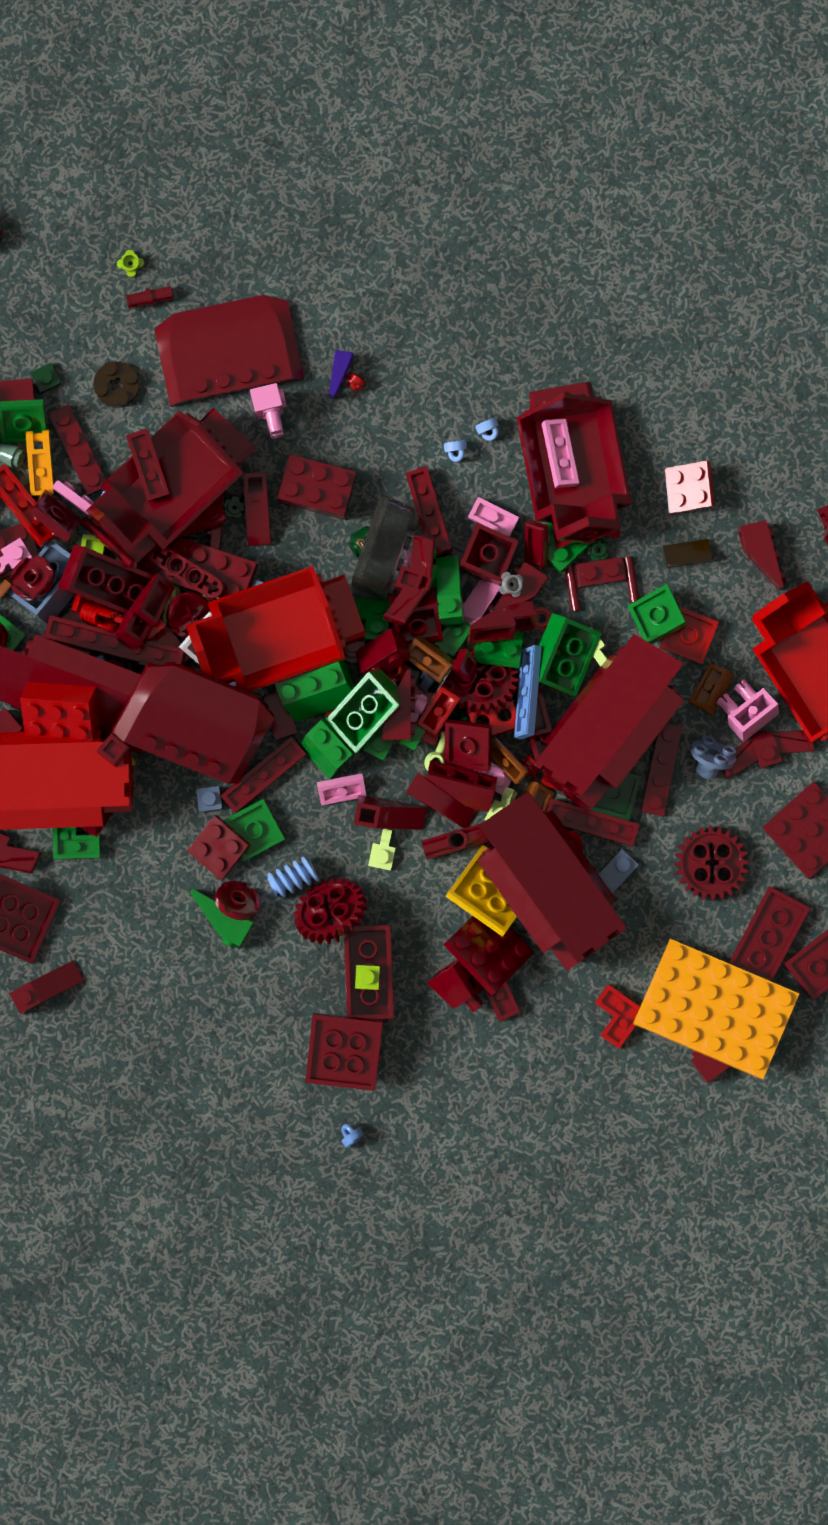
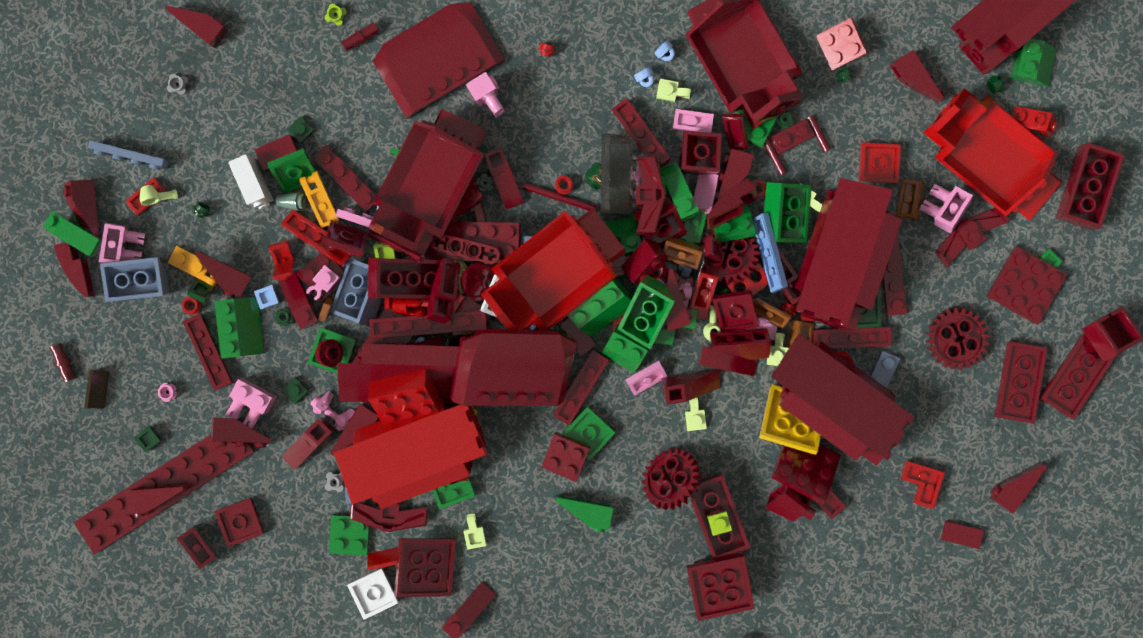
camera: 15 degrees left, 5 degrees up
(29, 569) = (337, 294): dark red plate -> none
(83, 904) = (474, 535): none -> yellowish green plate
(113, 749) = (457, 414): dark red tile -> none
(120, 396) = (364, 124): dark brown plate -> none
(147, 465) = (405, 173): dark red plate -> none
(209, 799) = (544, 420): sand blue plate -> none
(237, 900) = (600, 488): dark red plate -> none
(292, 877) = (632, 460): light blue piece -> none
(311, 551) = (559, 197): none -> dark red bar
(316, 487) = (545, 144): dark red brick -> none
(319, 533) = (559, 180): none -> red plate
(341, 365) = (531, 42): dark purple slope -> none
(442, 845) = (740, 395): dark red piece -> none
(479, 474) = (669, 90): none -> yellowish green plate
(517, 581) = (731, 166): light grey plate -> none
(560, 453) = (730, 51): bright pink plate -> none
(643, 1091) = (962, 534): none -> dark red tile
(657, 614) = (850, 155): green plate -> none
(682, 523) = (845, 74): none -> dark green plate
(687, 553) = (856, 97): dark brown slope -> none
(712, 757) = (931, 254): sand blue plate -> none
(716, 1009) = (1002, 453): light orange plate -> none

